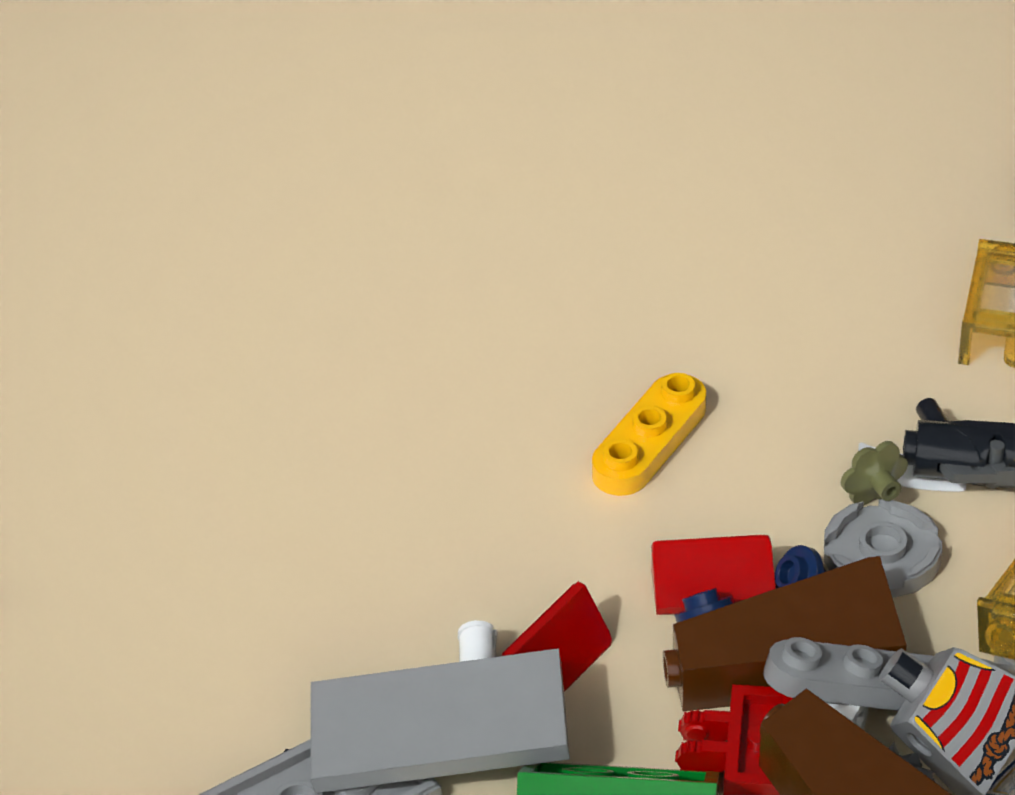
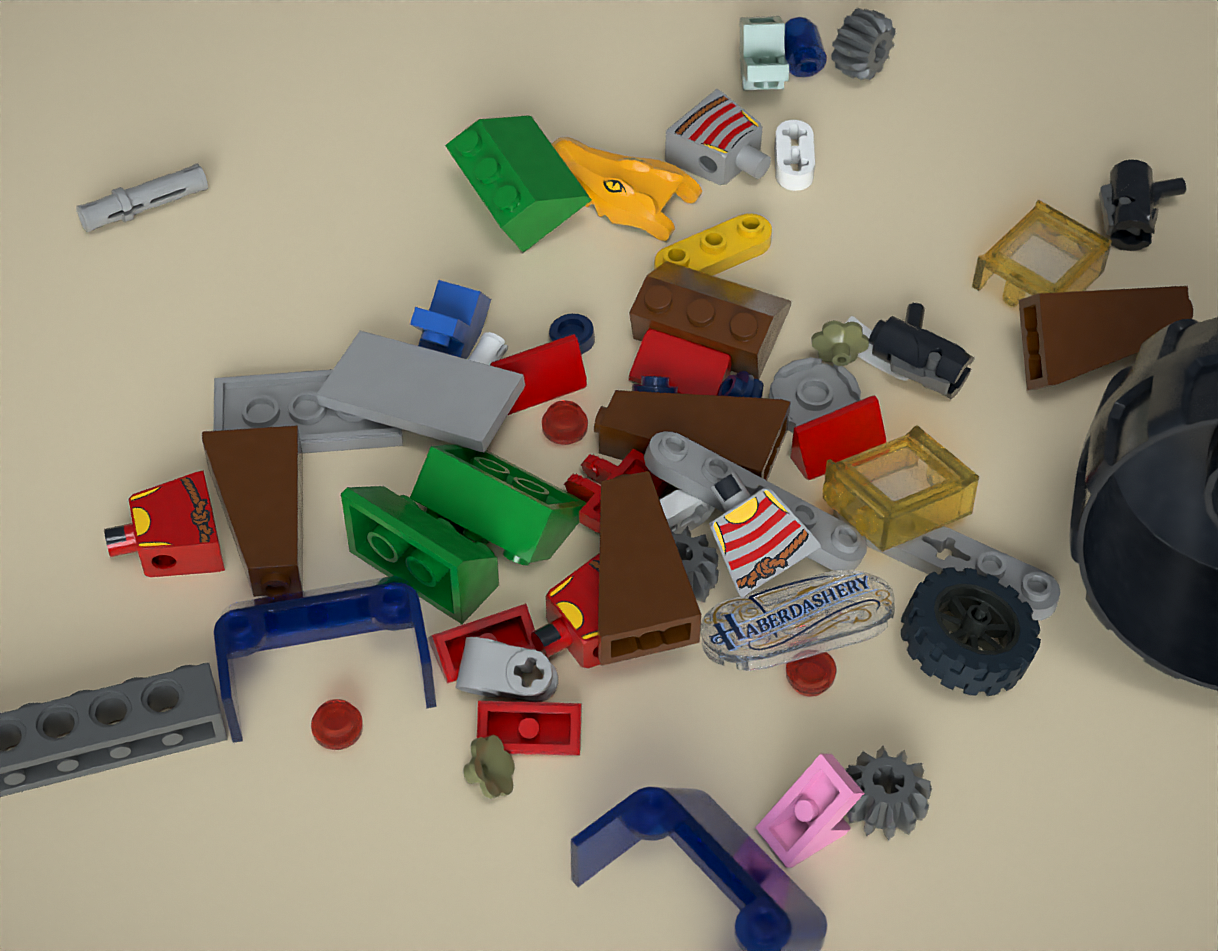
camera: 25 degrees right, 10 degrees up
(373, 435) = (518, 176): none -> green slope
(411, 623) = (453, 319): none -> blue brick
(496, 401) = (628, 187): none -> light orange animal
(548, 583) = (574, 324): none -> dark blue tile
(555, 198) = (762, 53): none -> brick
(572, 311) = (717, 141): none -> light grey torso
(591, 176) = (803, 47): none -> clear blue brick
(624, 691) = (564, 423): none -> clear red plate
(653, 299) = (802, 155): none -> white beam
(662, 146) = (863, 44): none -> dark grey gear
(711, 499) = (710, 314): none -> reddish brown slope
(948, 580) = (837, 436): none -> red slope

